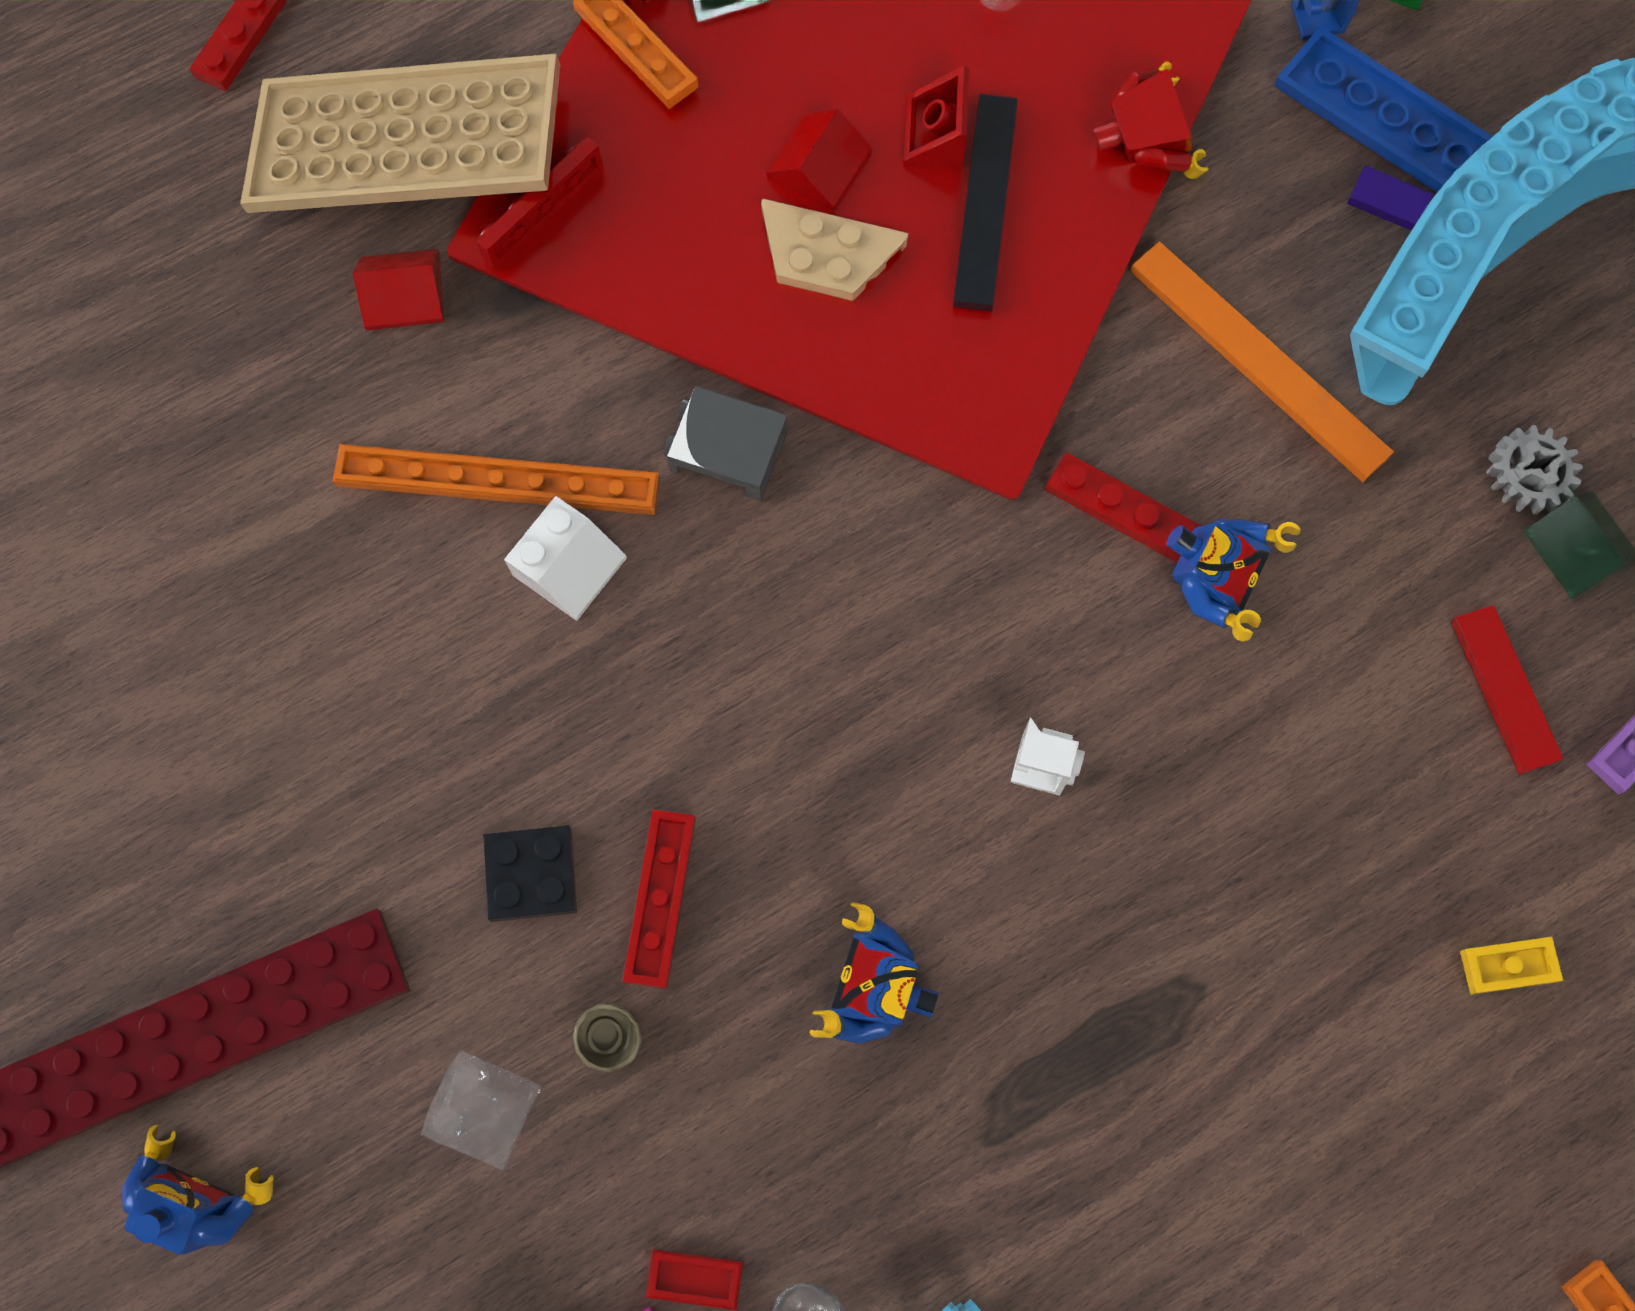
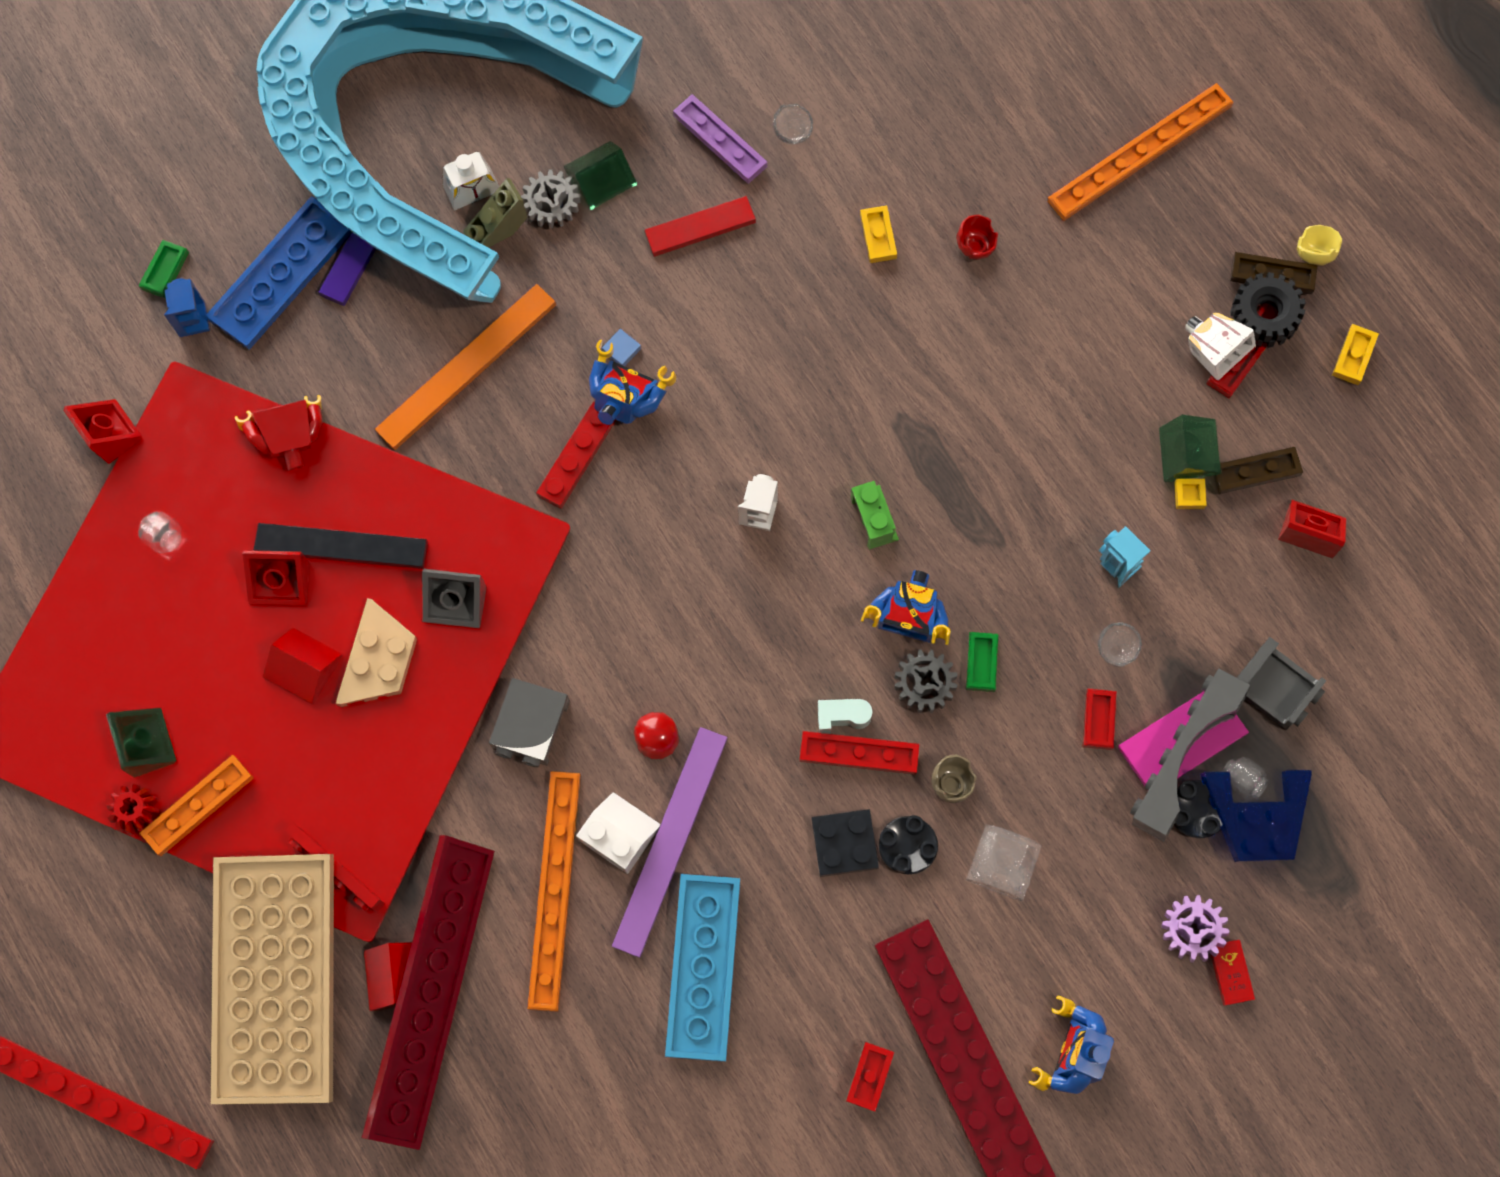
camera: 90 degrees left, 0 degrees up
(193, 893) = (870, 1077): none -> red plate
(370, 669) = (703, 968): none -> dark azure plate
(371, 319) = (428, 994): none -> dark red plate
(518, 965) = (908, 845): none -> black dish
(553, 631) = (669, 842): none -> medium lavender tile
(703, 613) = (656, 735): none -> red hair
(720, 889) = (843, 713): none -> light aqua leg
(747, 991) = (933, 688): none -> dark grey gear
(794, 1095) = (982, 662): none -> green tile
(903, 339) = (453, 598): none -> dark grey slope
(1030, 937) = (874, 514): none -> bright green window
(1296, 572) = (624, 347): none -> medium blue tile
(1494, 393) = (498, 217): none -> olive slope
(1516, 1128) = (976, 237): none -> red hair
(1556, 355) = (468, 180): none -> white torso

